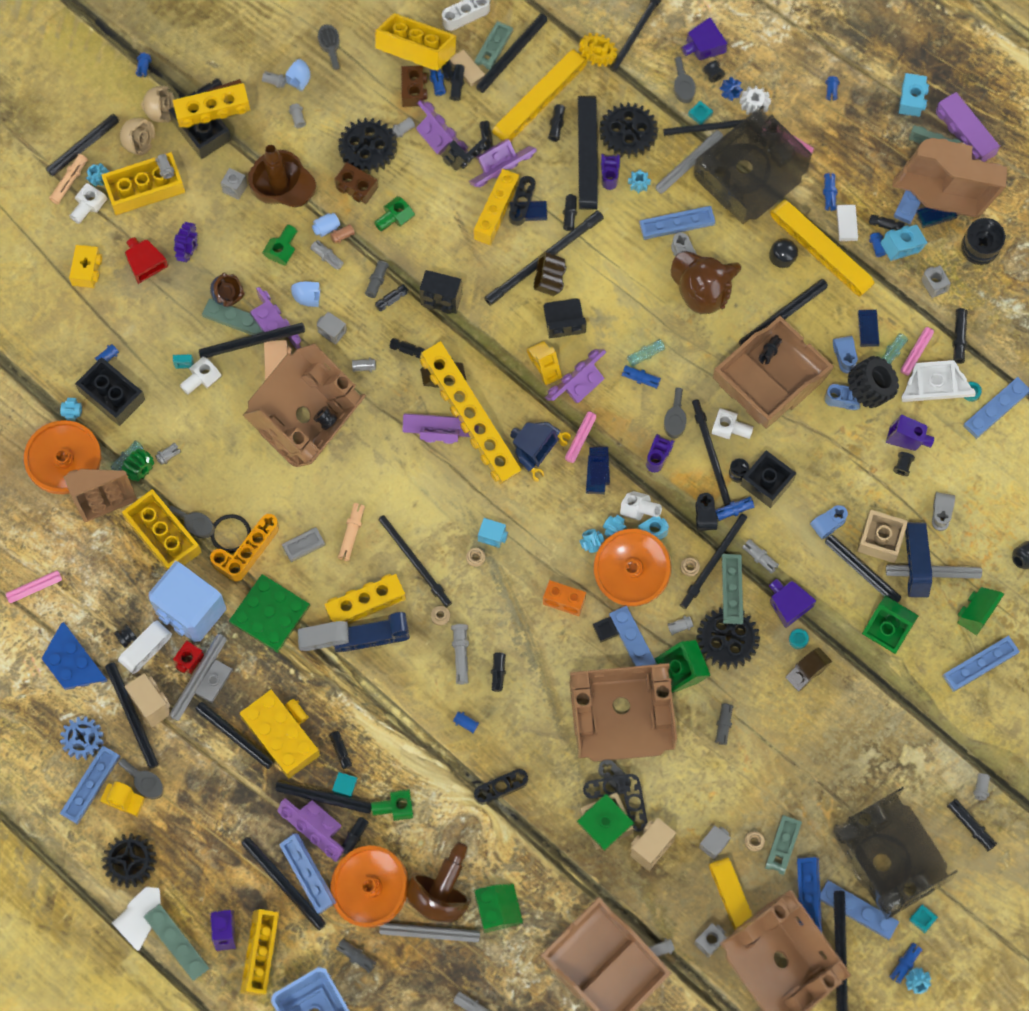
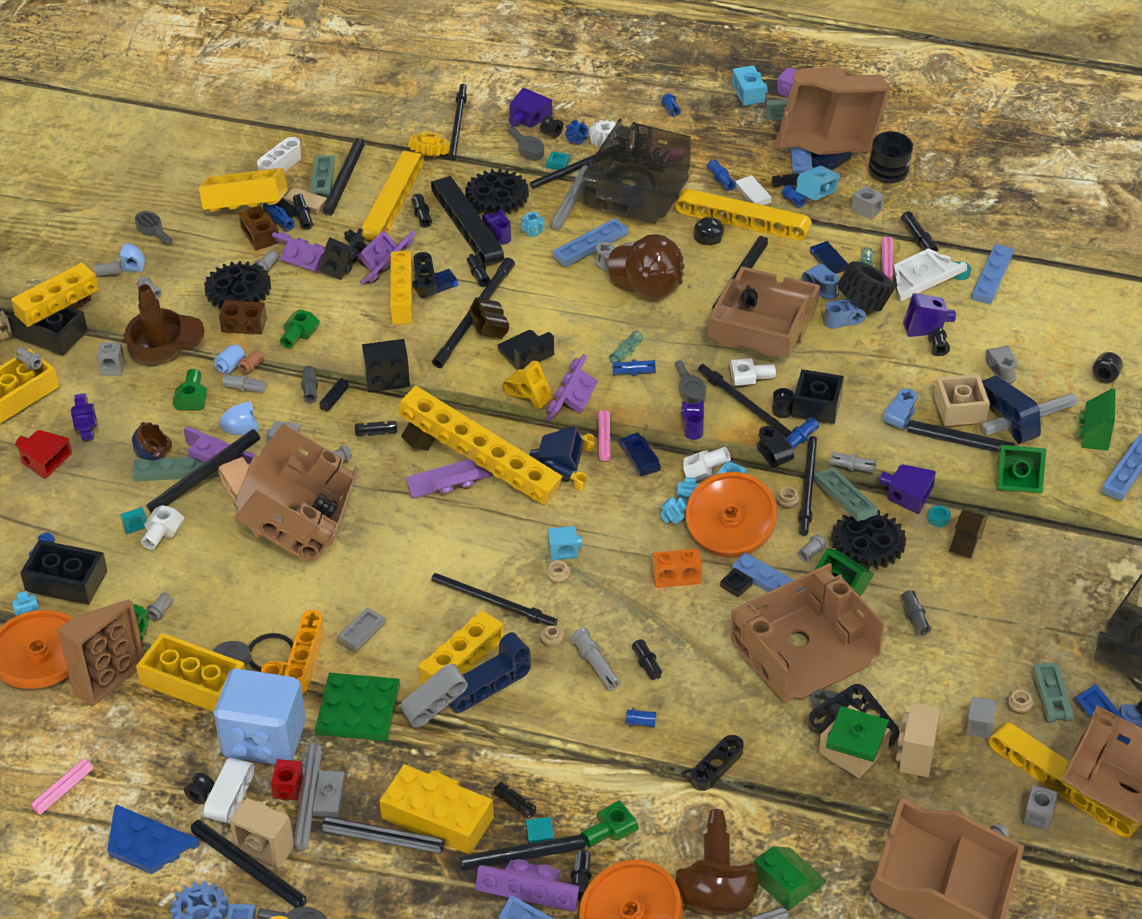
camera: 25 degrees left, 25 degrees down
(351, 531) = (407, 593): light nougat pin -> none

